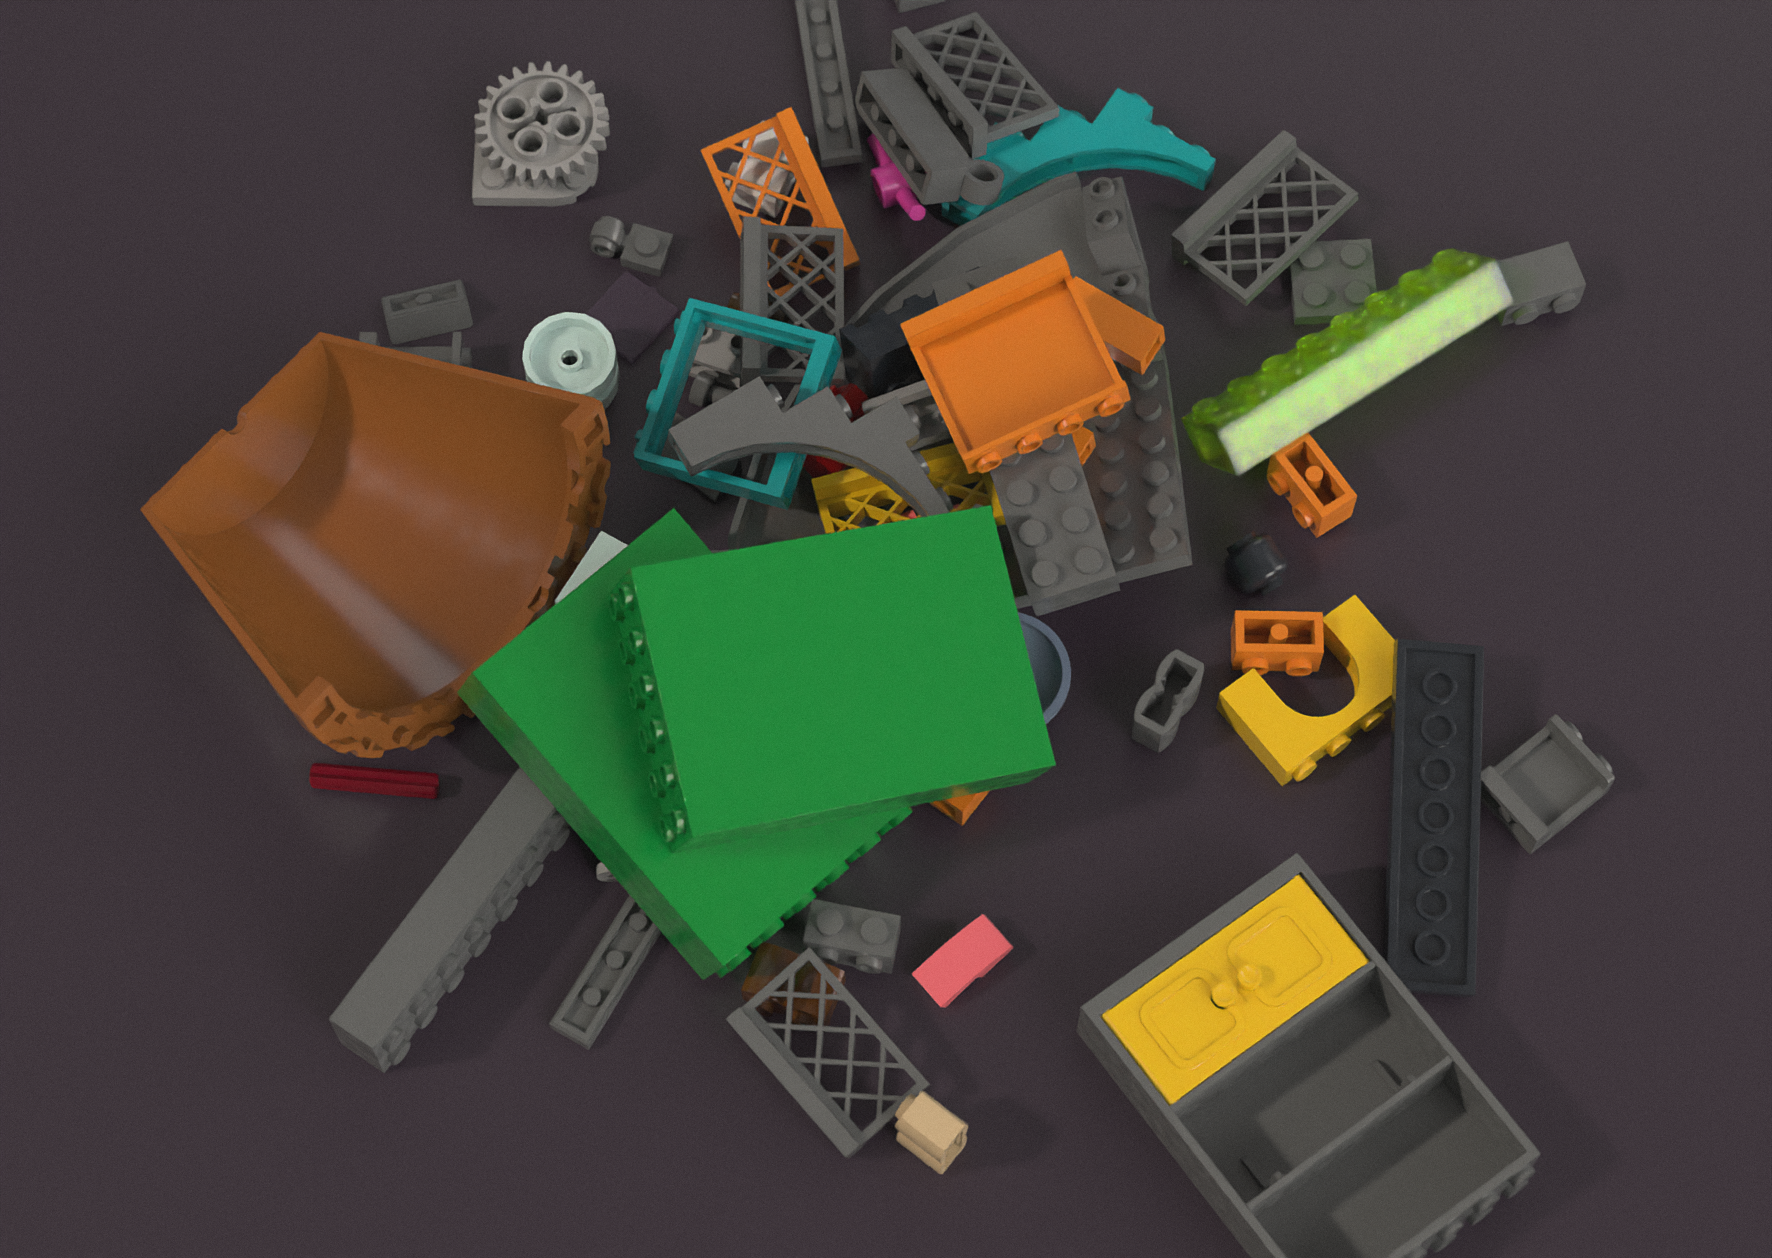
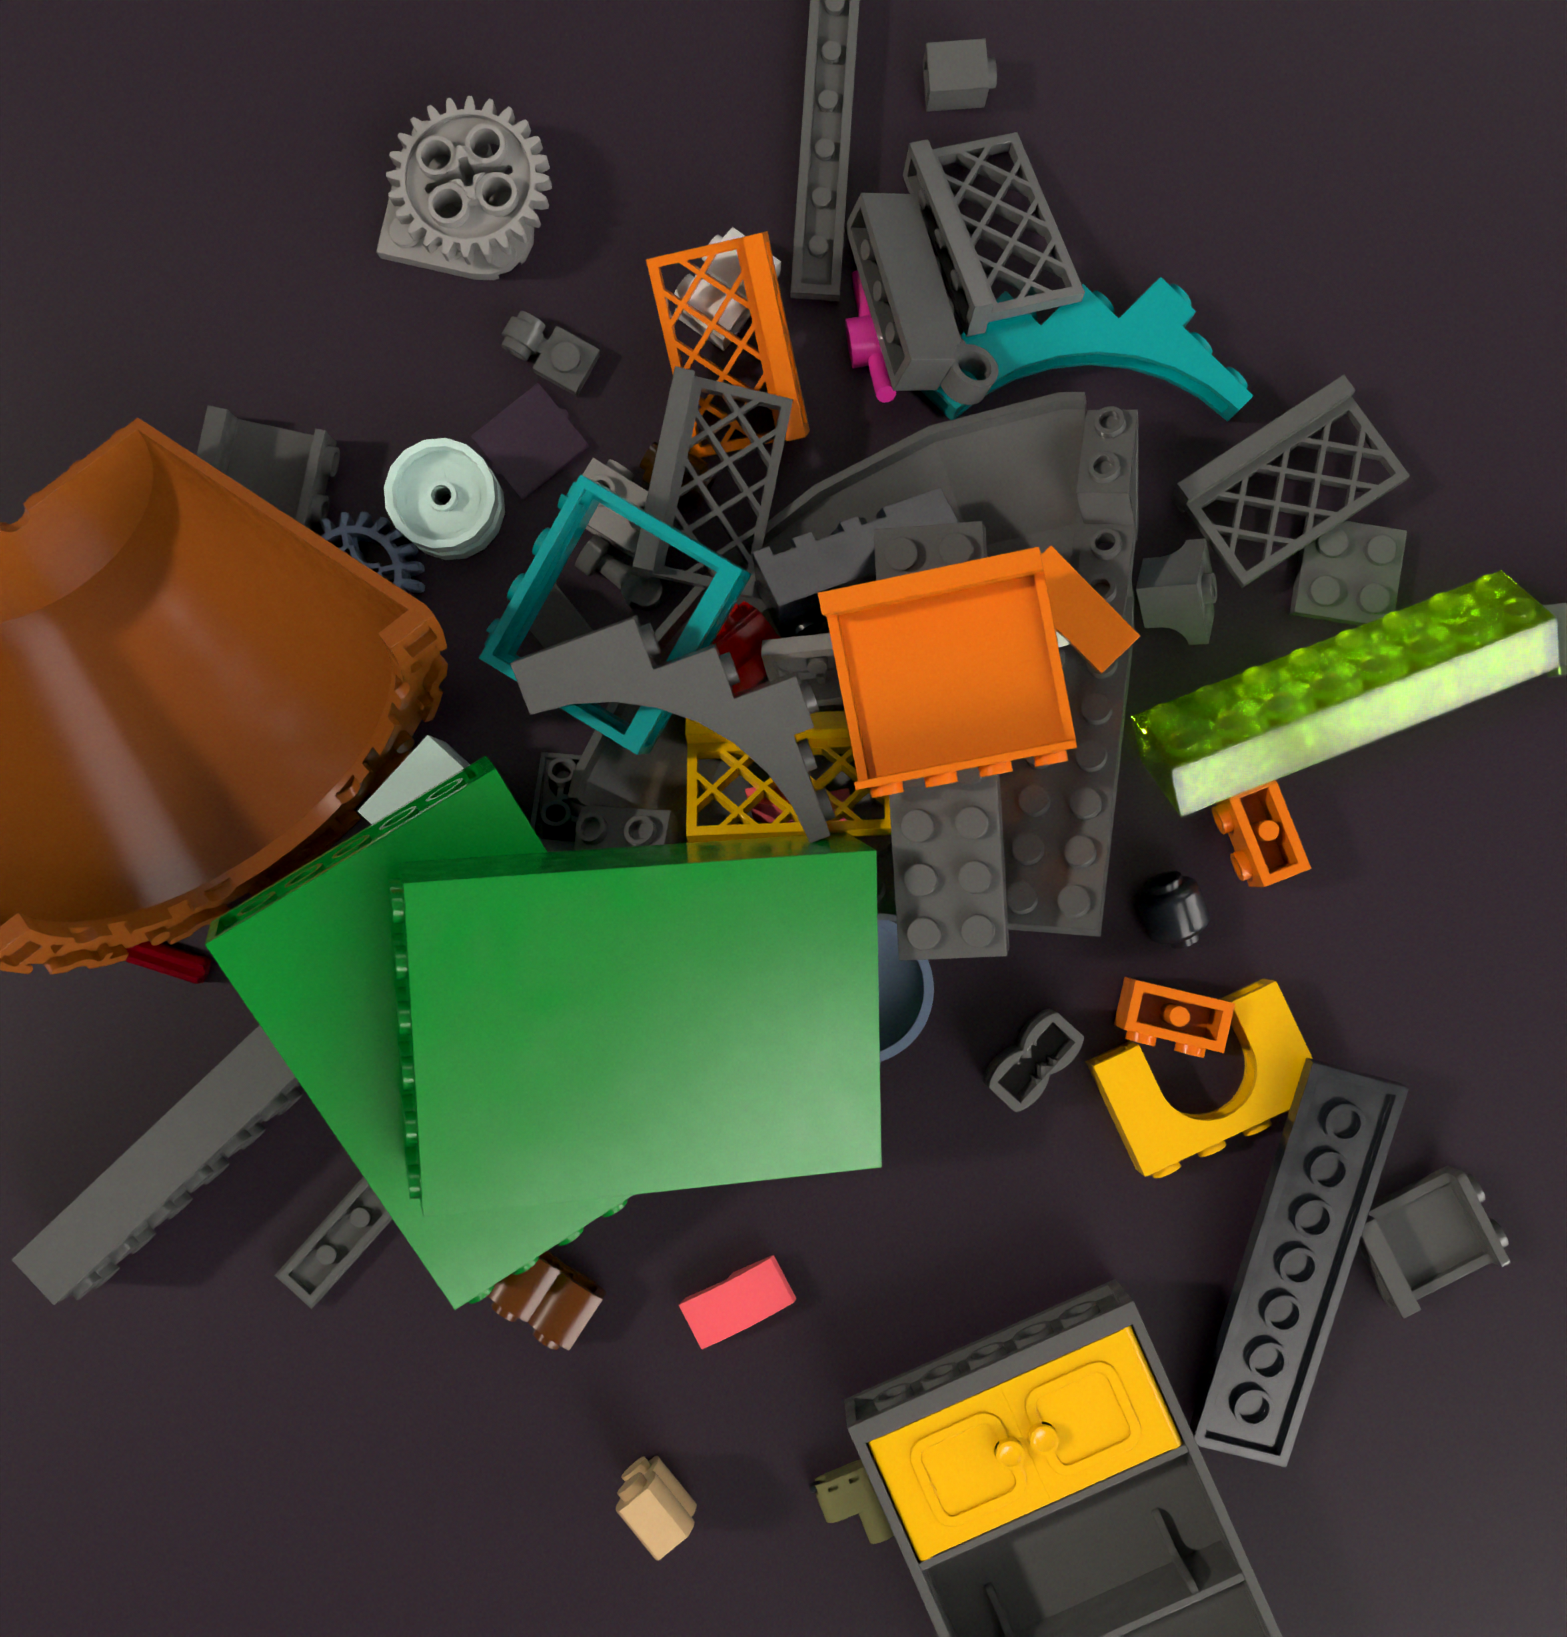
camera: 10 degrees right, 20 degrees up
(427, 312) = (299, 385): dark grey slope -> none
(794, 1074) = (521, 1400): dark grey fence -> none
(852, 936) = (622, 1257): dark grey brick -> none
(1105, 1100) = (848, 1493): none -> olive piece
(1195, 317) = (1179, 592): none -> dark grey brick

